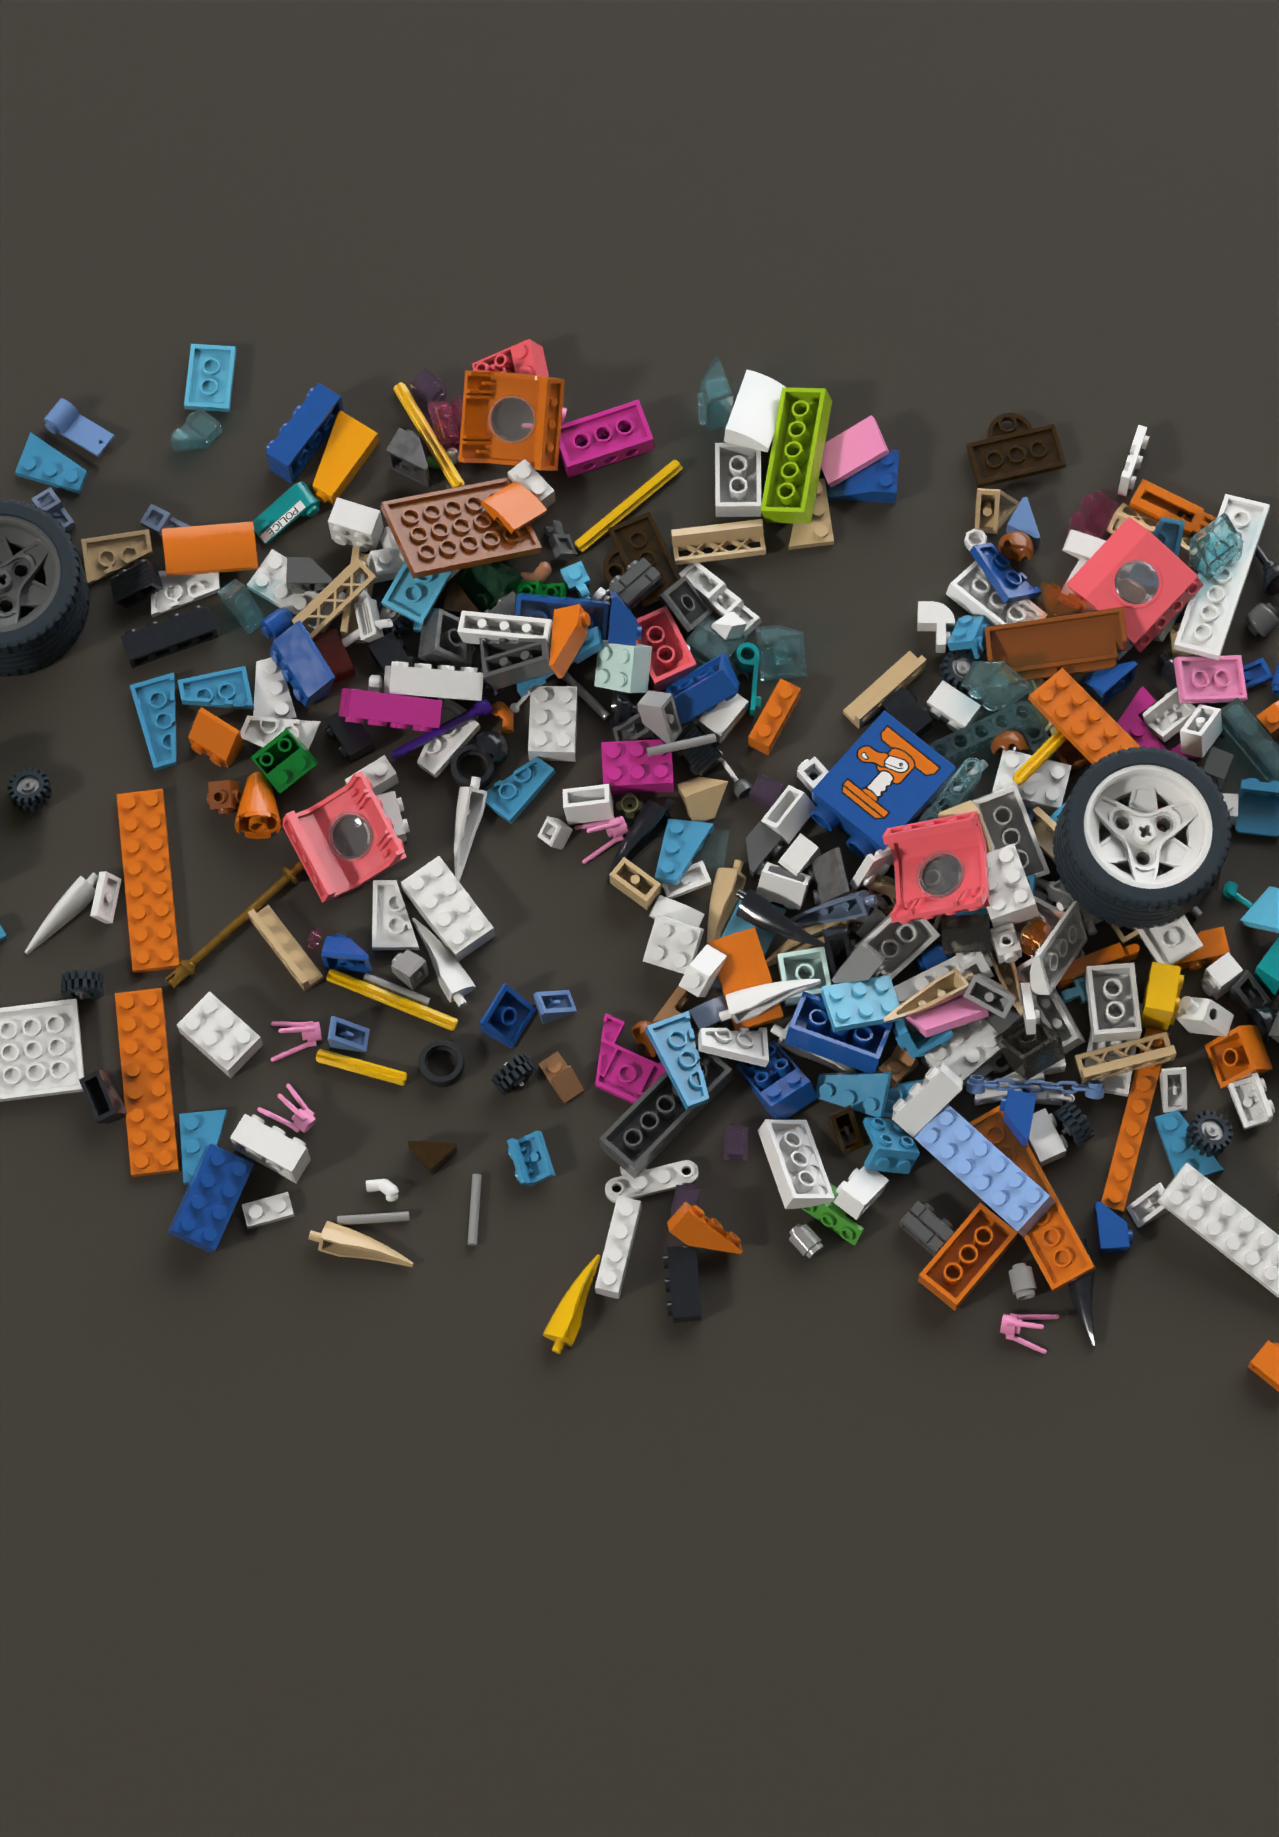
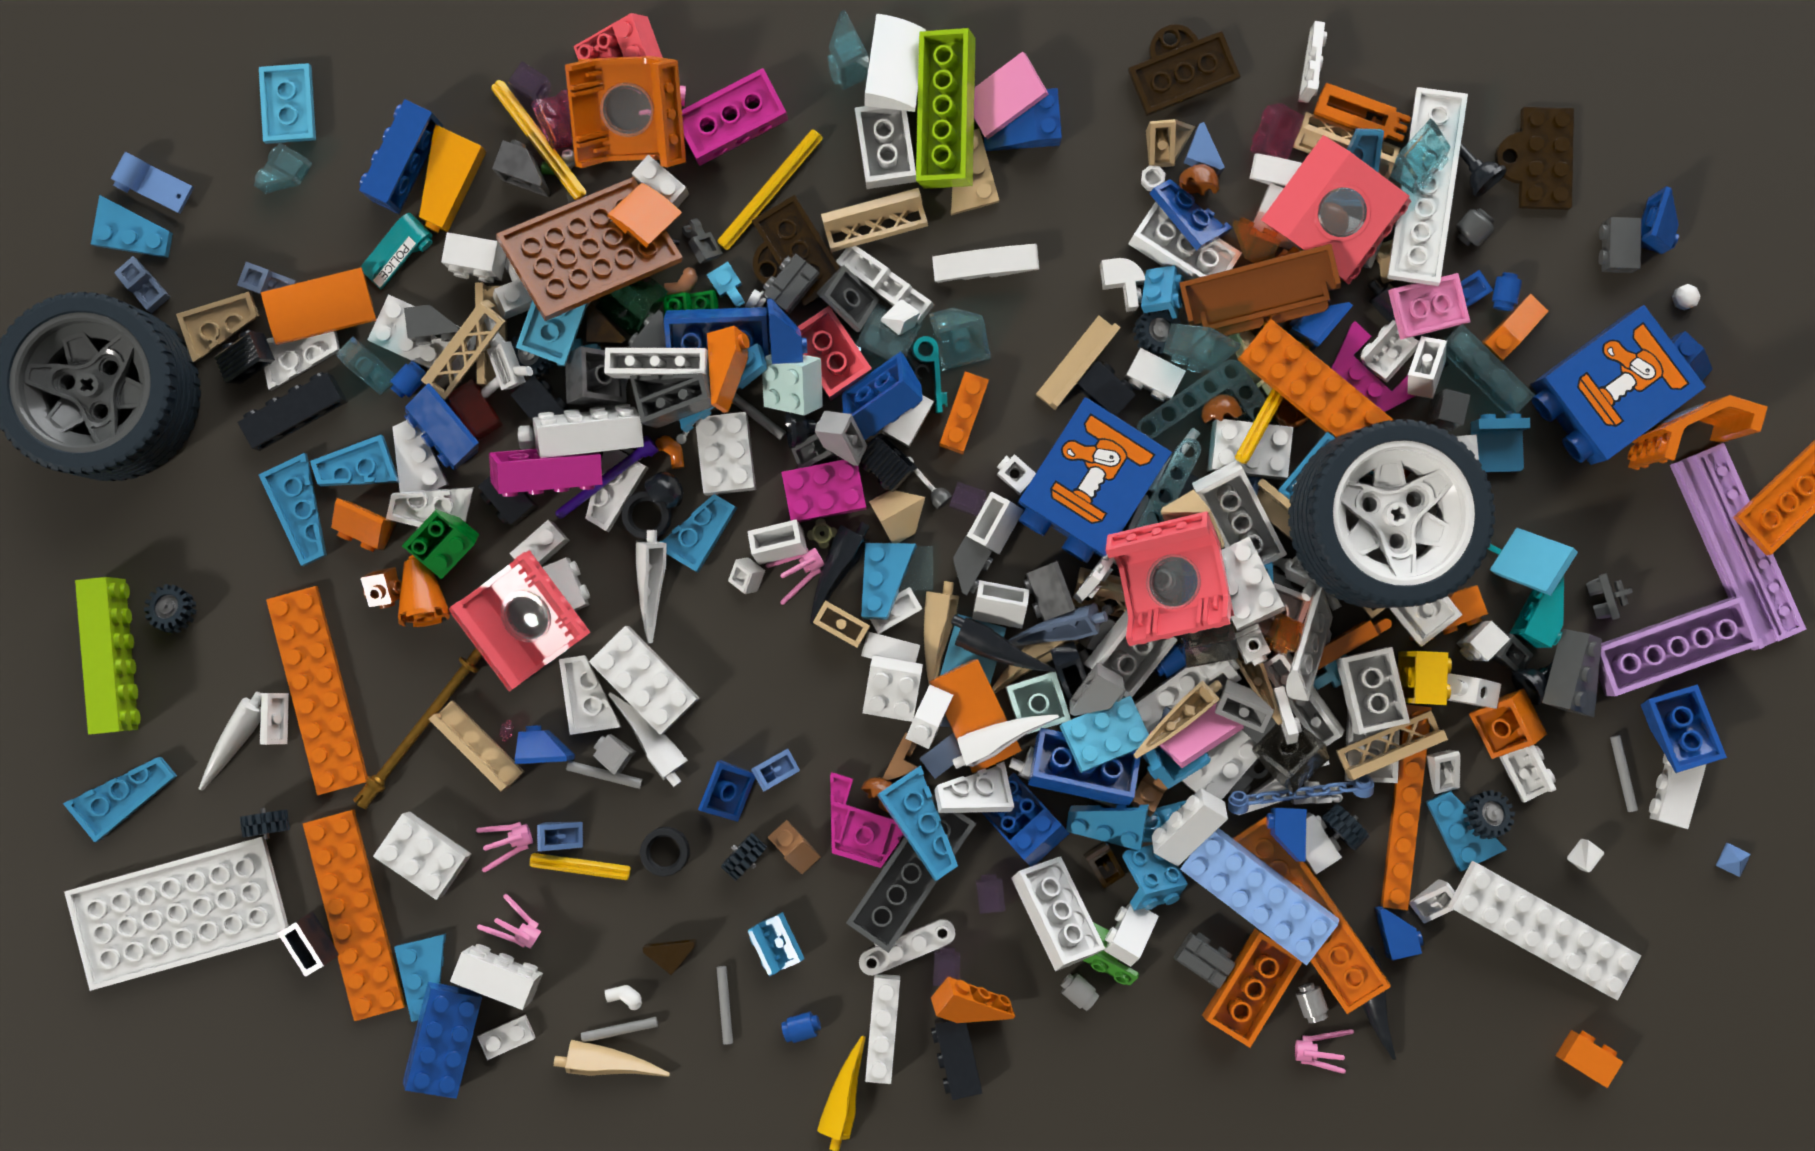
camera: 10 degrees left, 15 degrees up
(392, 999) = (601, 787): yellow axle -> none
(542, 1237) = (801, 1027): none -> blue brick
(682, 744) = (869, 465): light grey bar -> none
(799, 855) = (1013, 569): white slope -> none
(816, 591) = (986, 262): none -> white slope

